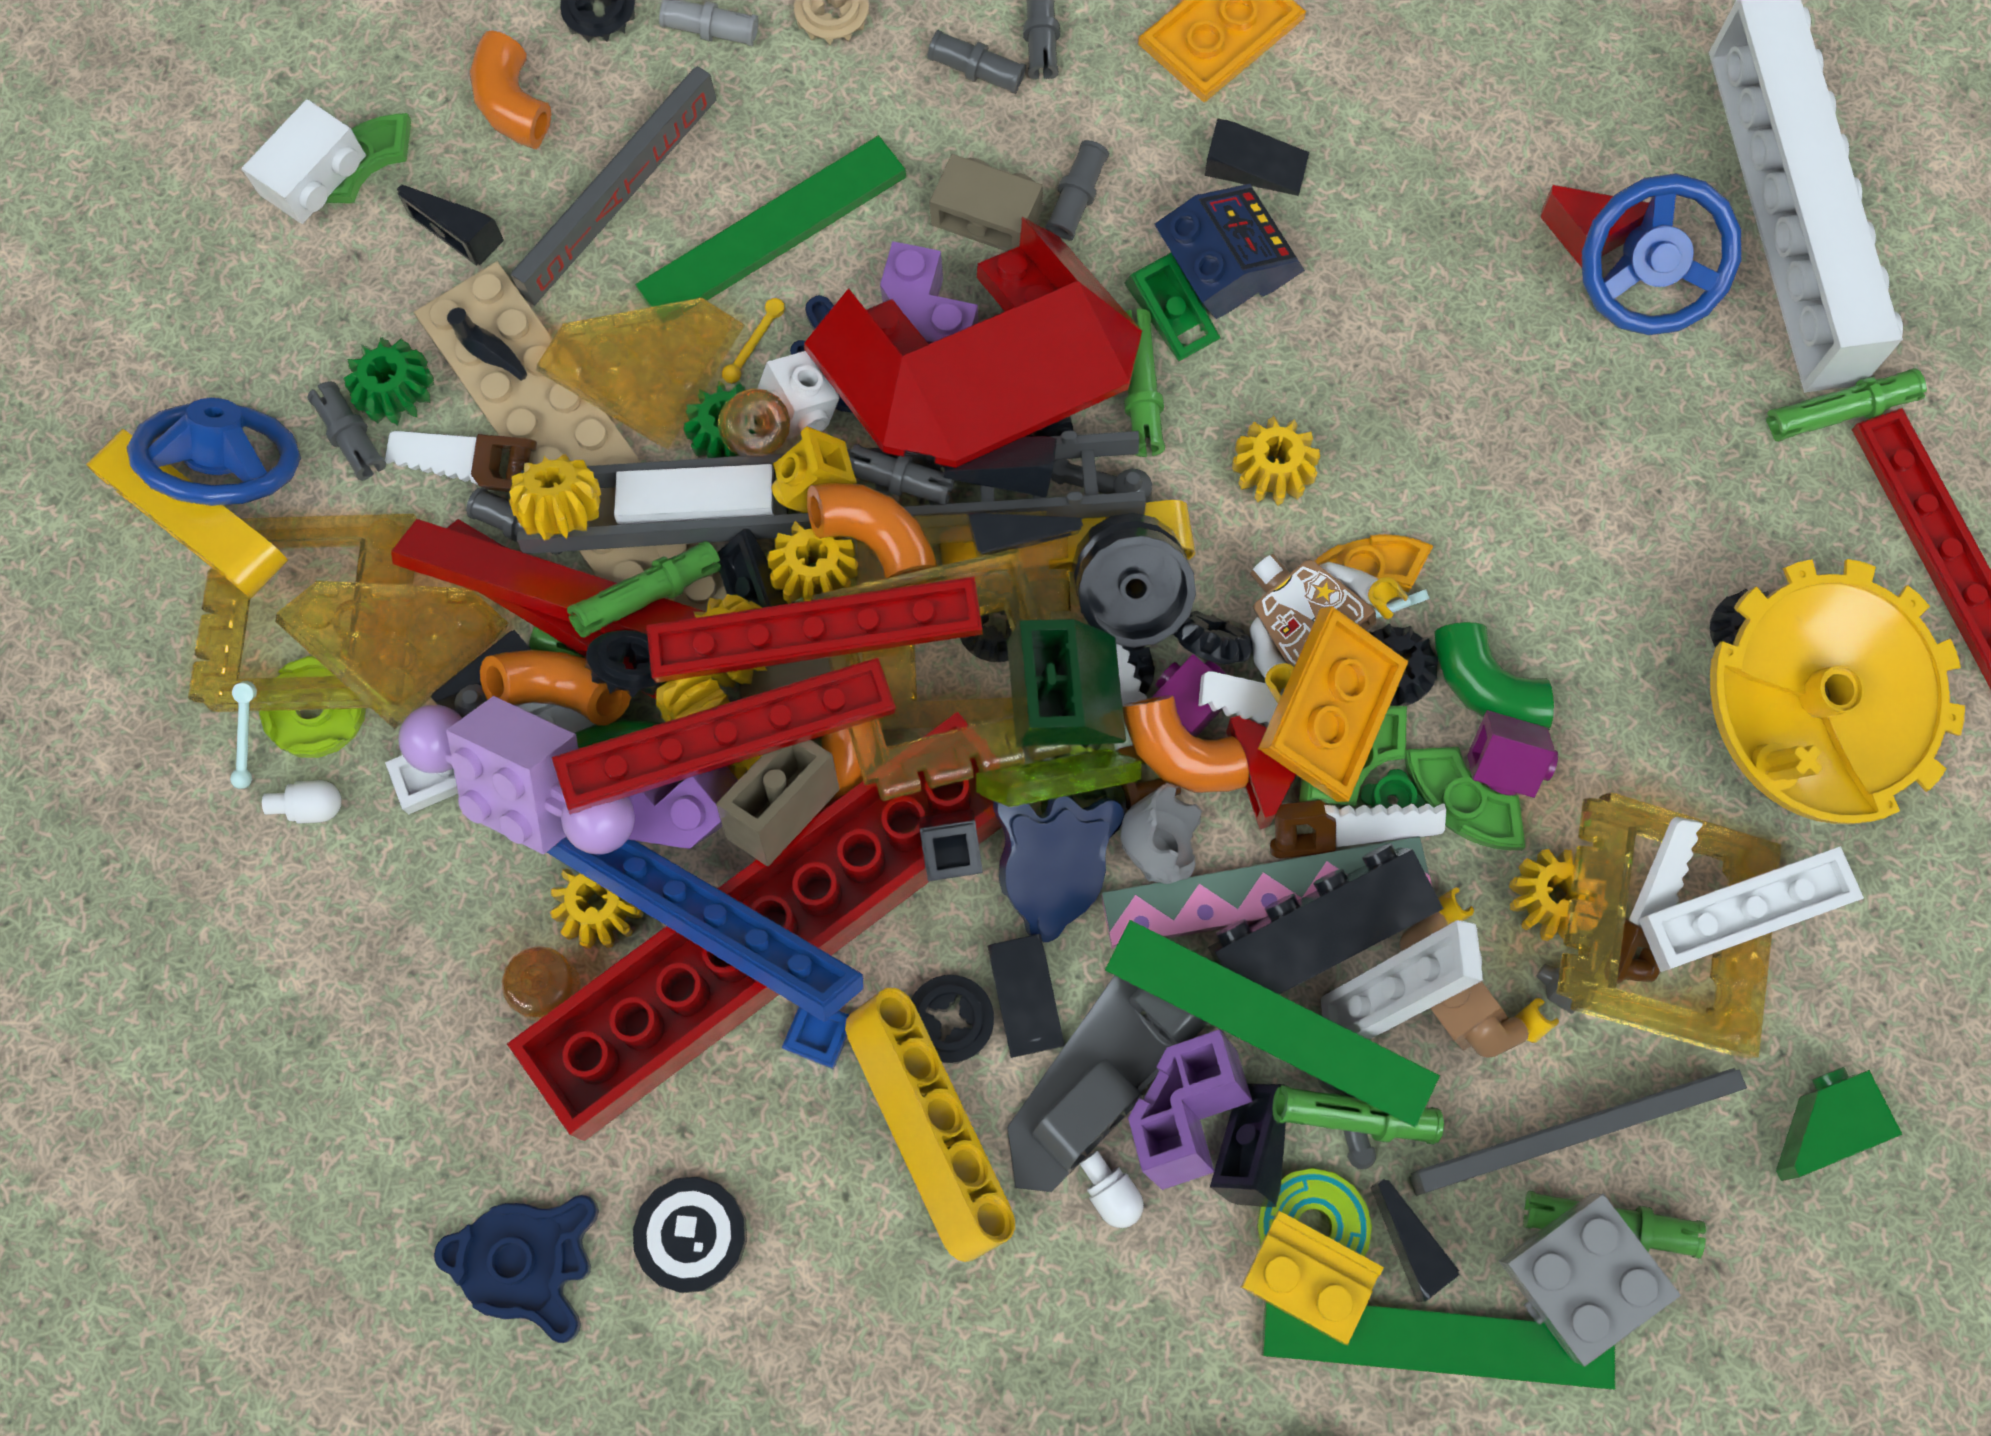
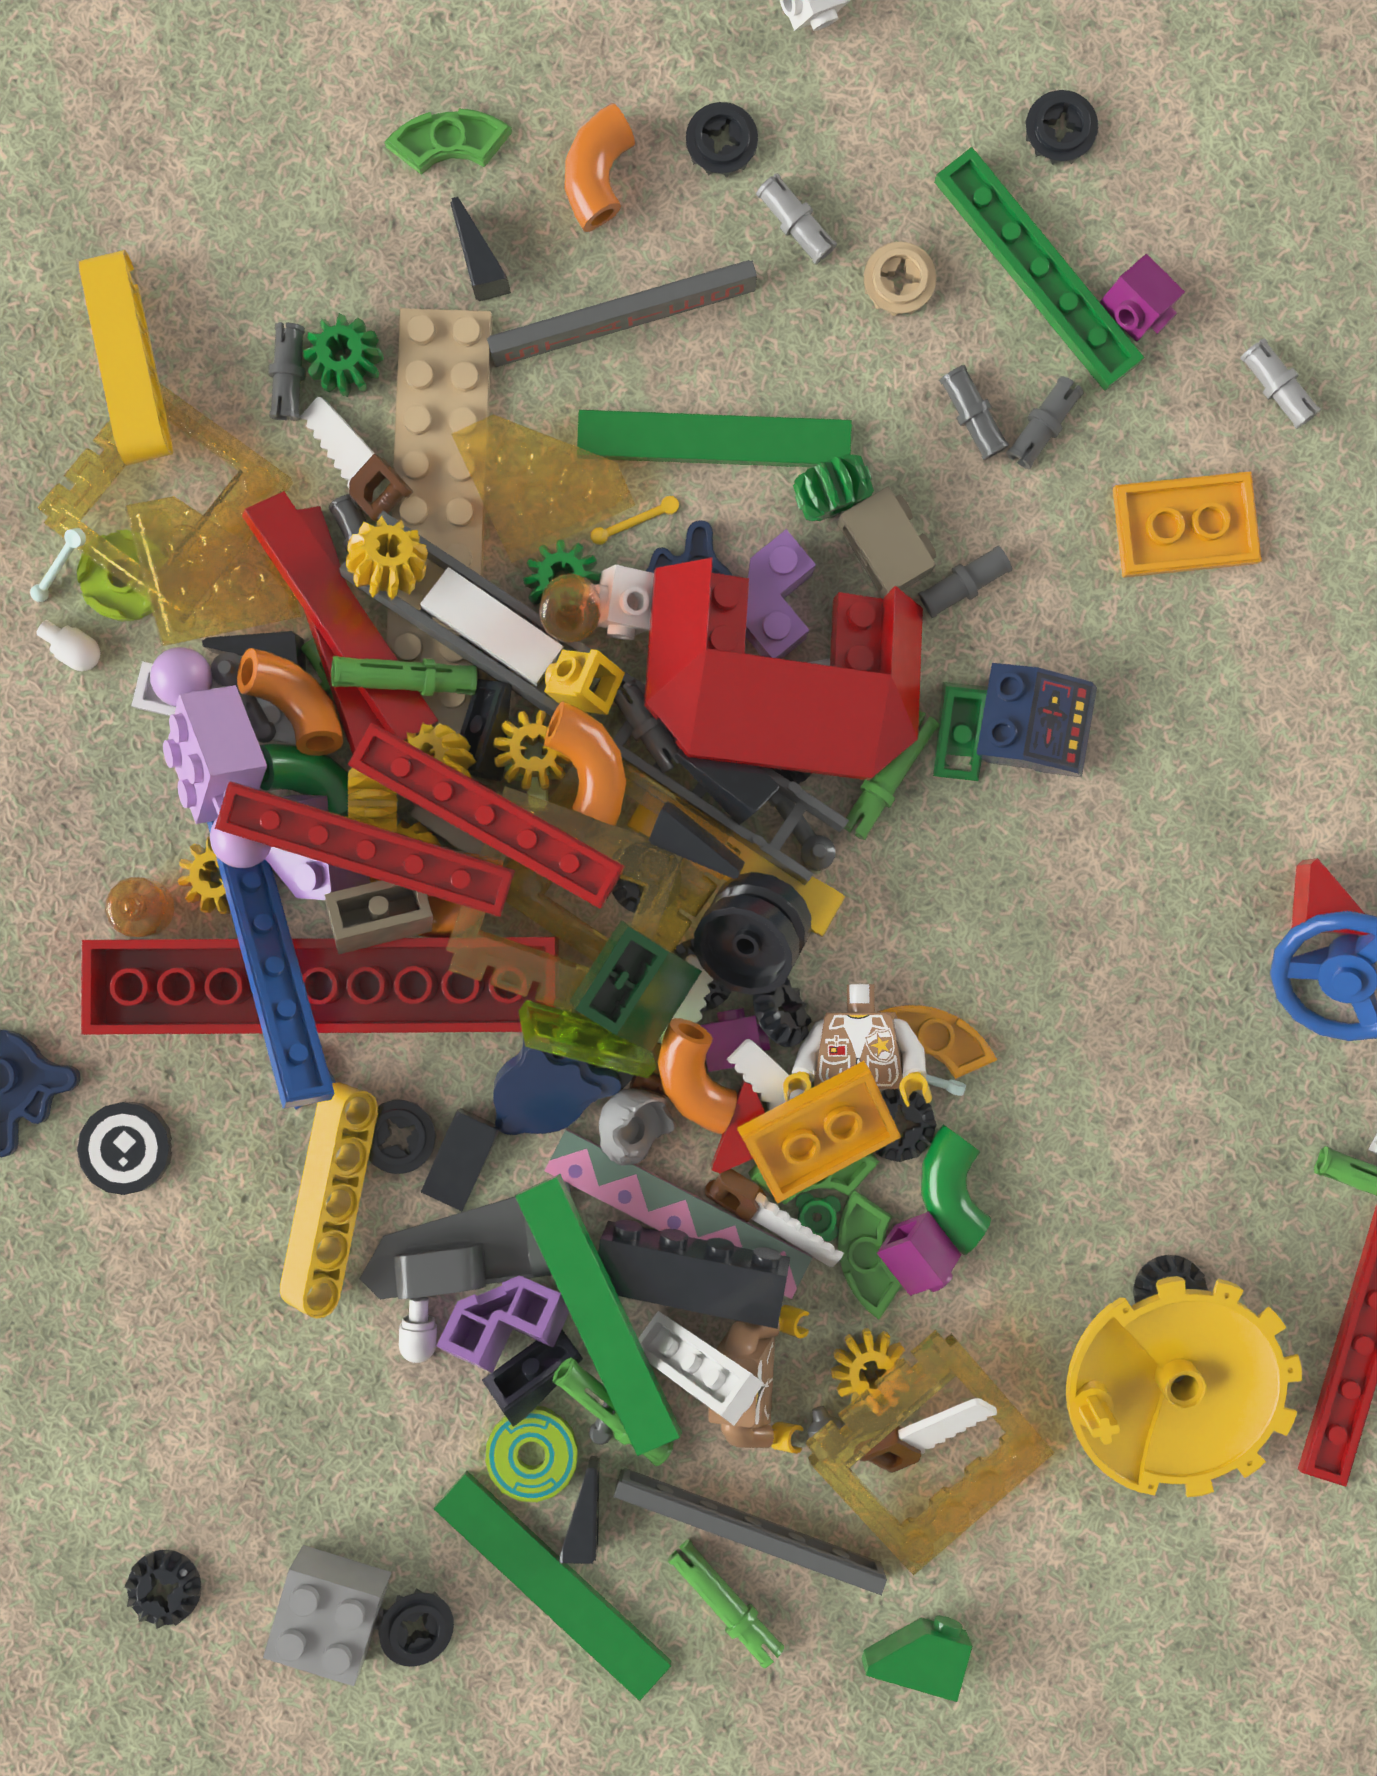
camera: 35 degrees right, 15 degrees up
(212, 442) = (174, 321): blue piece -> none
(304, 161) = (399, 119): white brick -> none
(484, 344) = (429, 383): black bar -> none
(605, 661) = (337, 711): black gear -> none
(905, 188) = (833, 487): none -> green gear
(950, 845) = (476, 1030): black slope -> none
(1255, 159) = (1121, 658): black slope -> none
(1270, 476) = (945, 924): yellow gear -> none
(1312, 1277) = (500, 1488): yellow plate -> none
(1589, 1279) = (671, 1632): light grey brick -> none
(1750, 909) = (985, 1487): white plate -> none

